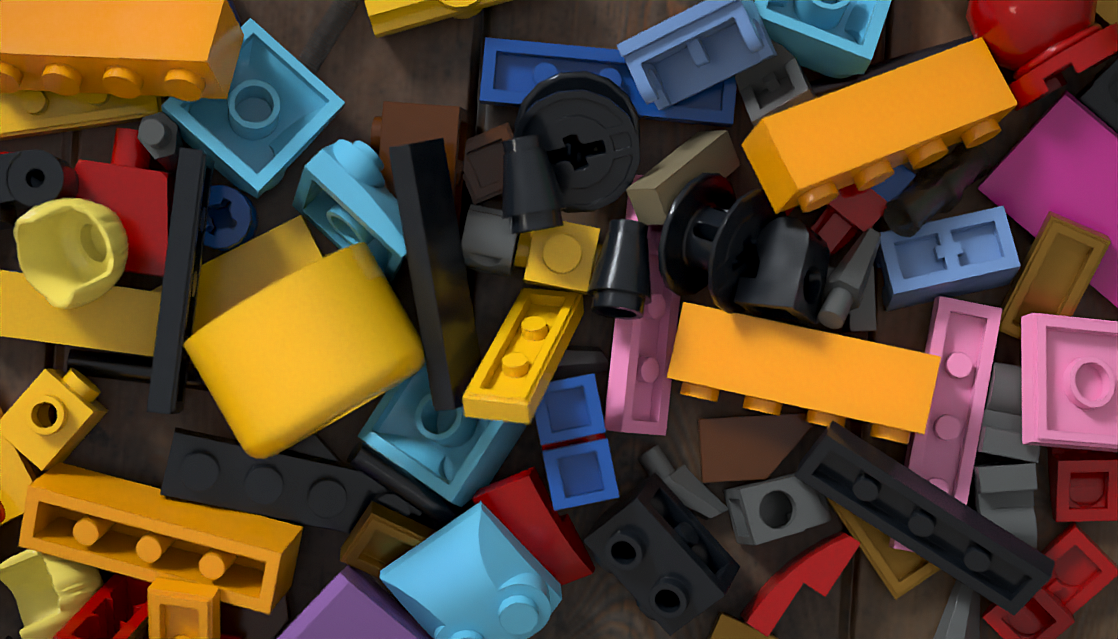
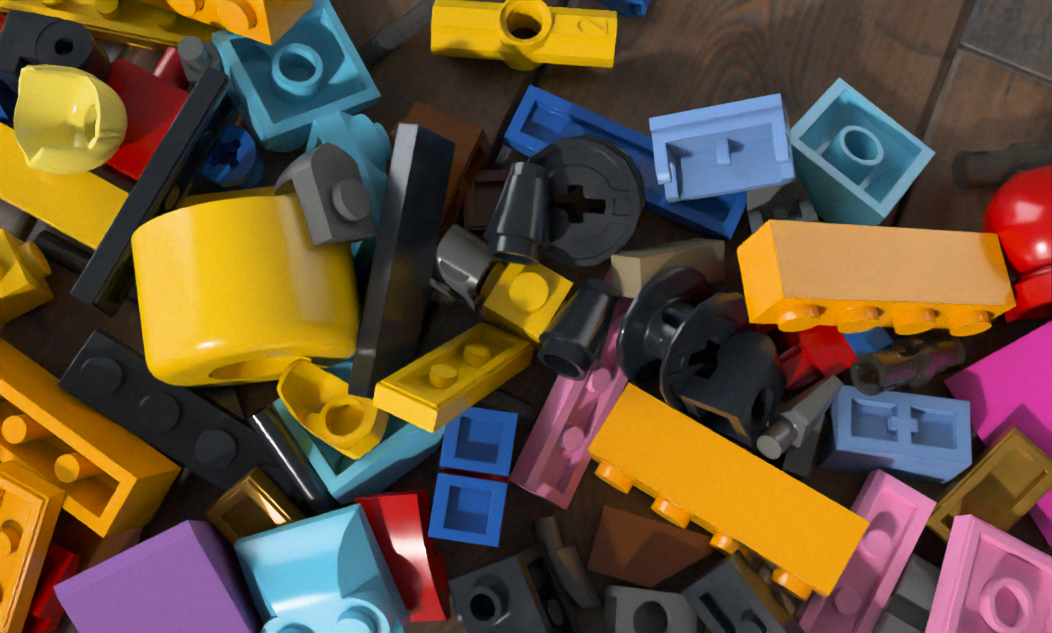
camera: 20 degrees right, 10 degrees down
(352, 238) = (329, 195): none -> dark grey plate
(417, 429) = (328, 411): none -> yellow hair

